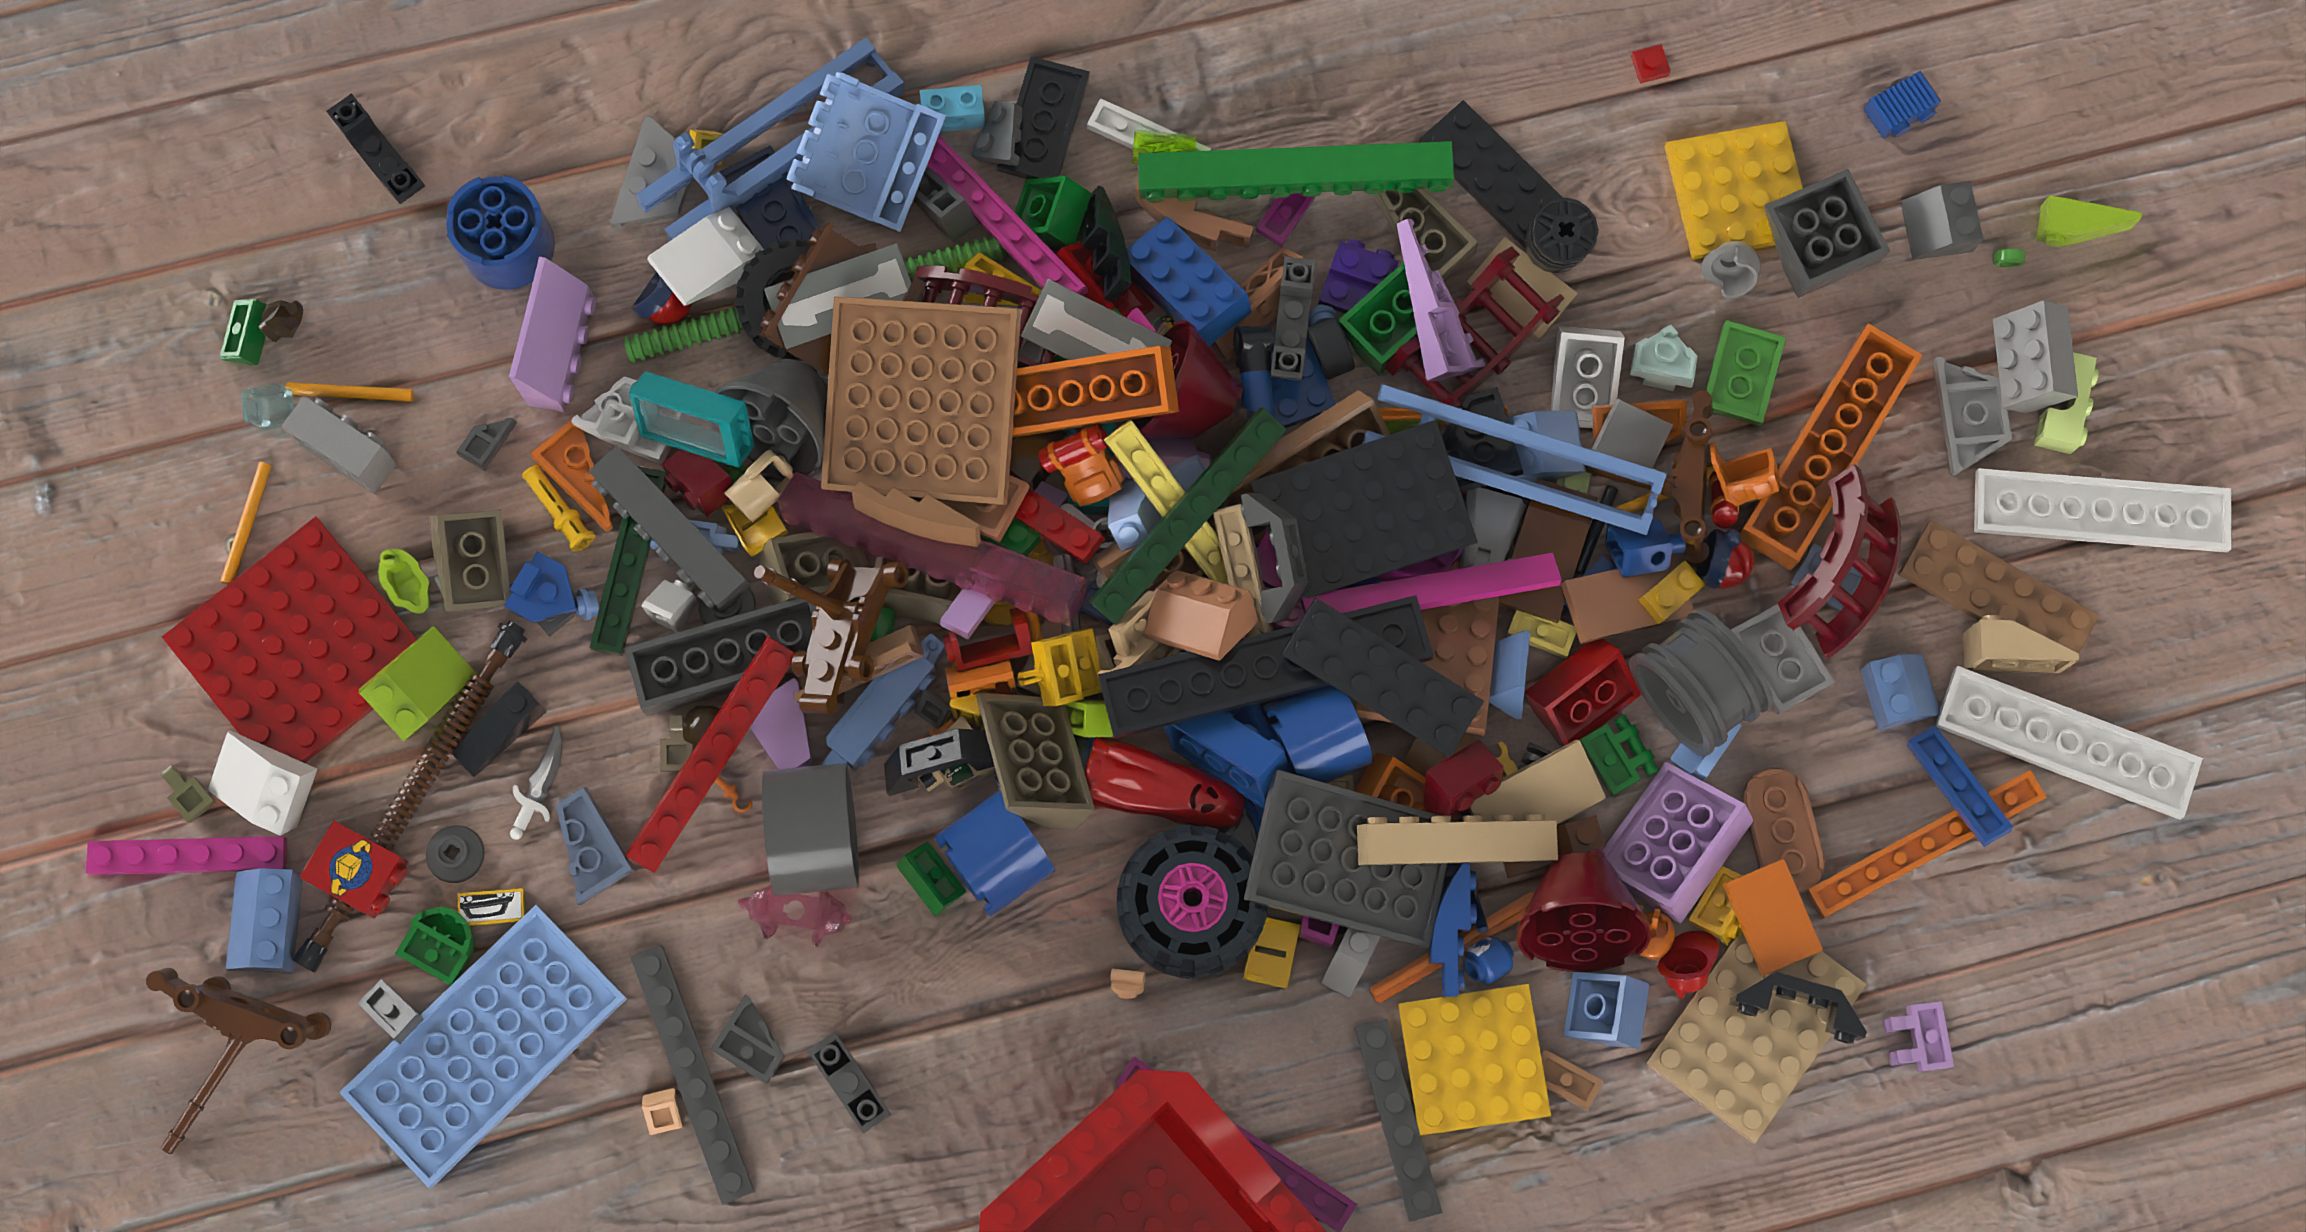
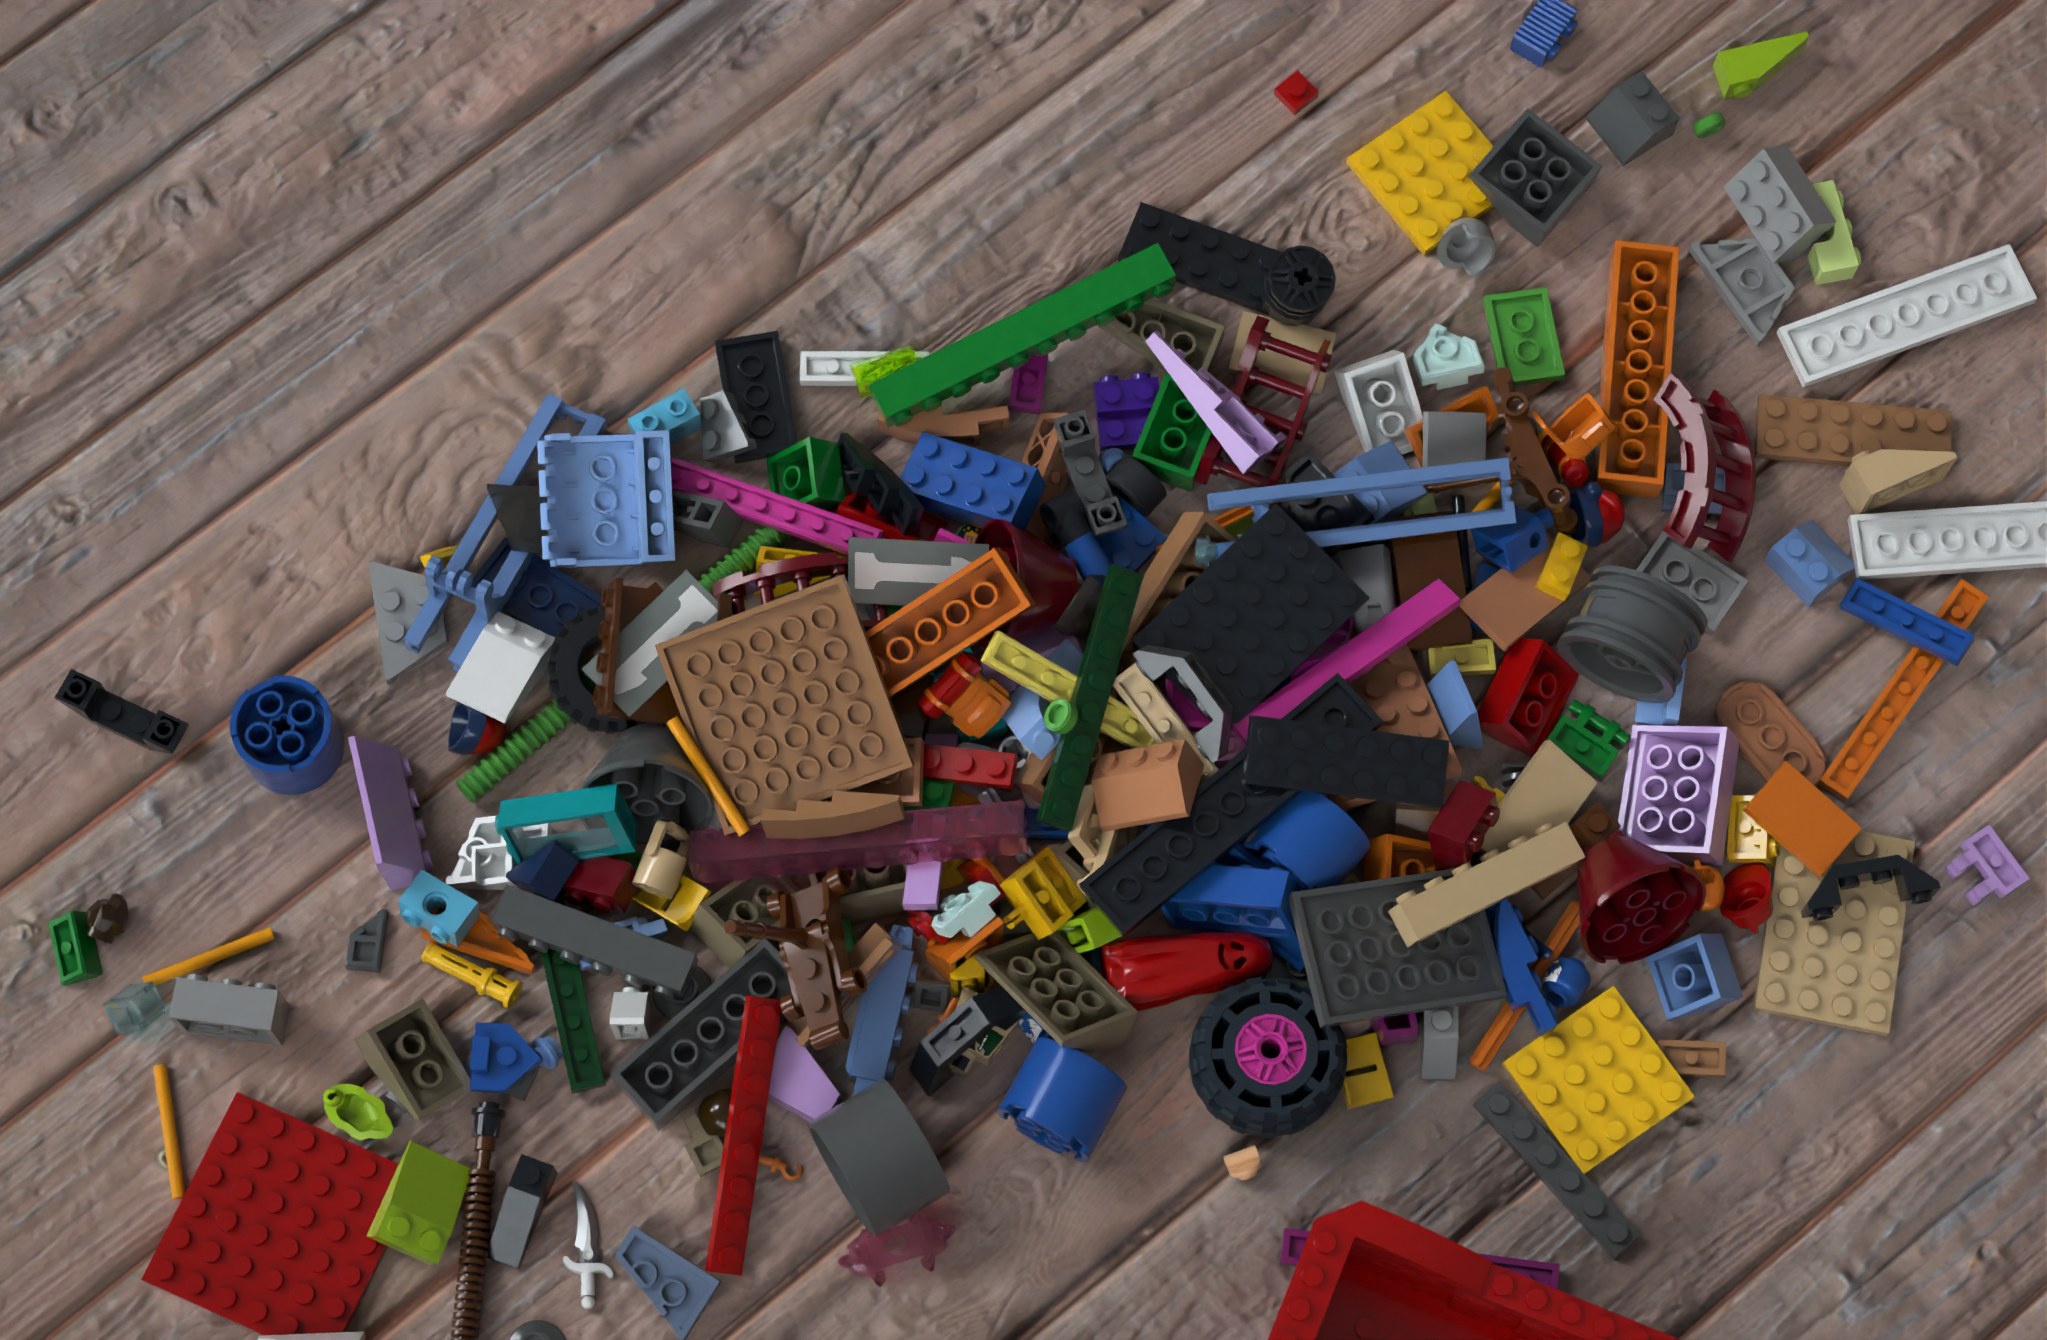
camera: 25 degrees left, 5 degrees down
(549, 422) = (429, 893): none -> medium azure brick
(656, 448) = (544, 871): none -> dark blue slope
(785, 131) = (519, 515): none -> clear smoke wing
(828, 432) = (708, 776): none -> light orange bar
(931, 878) = (1007, 1155): green slope -> none
(989, 652) = (966, 911): none -> light aqua plate
(1152, 520) = (1061, 716): none -> bright green tile
(1354, 433) = (1204, 551): none -> clear light blue plate

